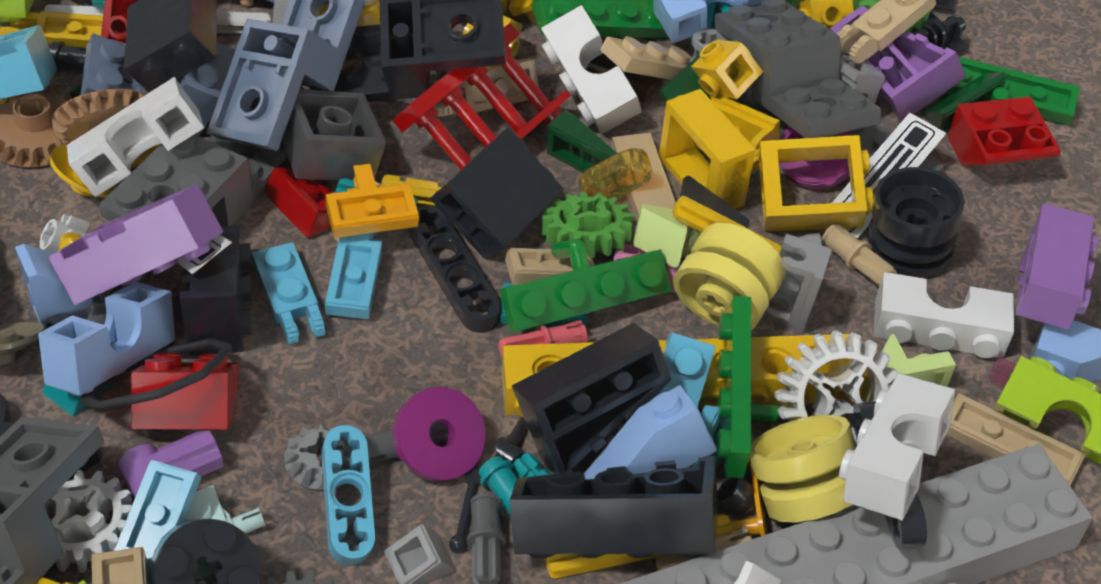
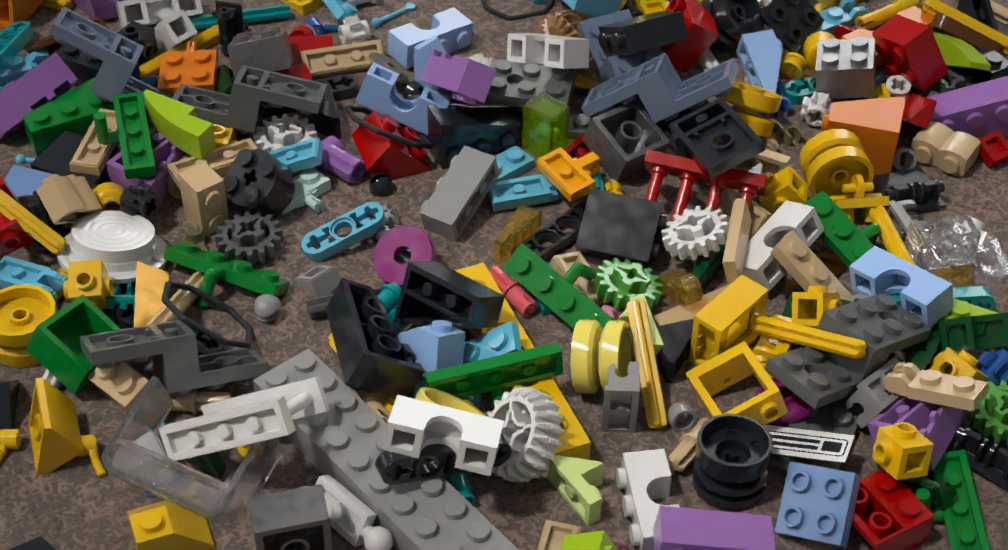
camera: 75 degrees right, 5 degrees down
(259, 427) = (380, 185): none -> black hinge
(260, 201) = (544, 125): none -> clear neon green brick
(343, 334) = (459, 193): none -> light grey brick
(438, 304) = (520, 226): none -> clear yellow slope
(565, 112) = (695, 232): none -> white gear
(591, 92) = (737, 240): none -> tan tile
(784, 82) = (808, 336): none -> yellow axle
(968, 76) = (902, 451): none -> yellow brick
(995, 175) = (818, 504): none -> medium blue plate

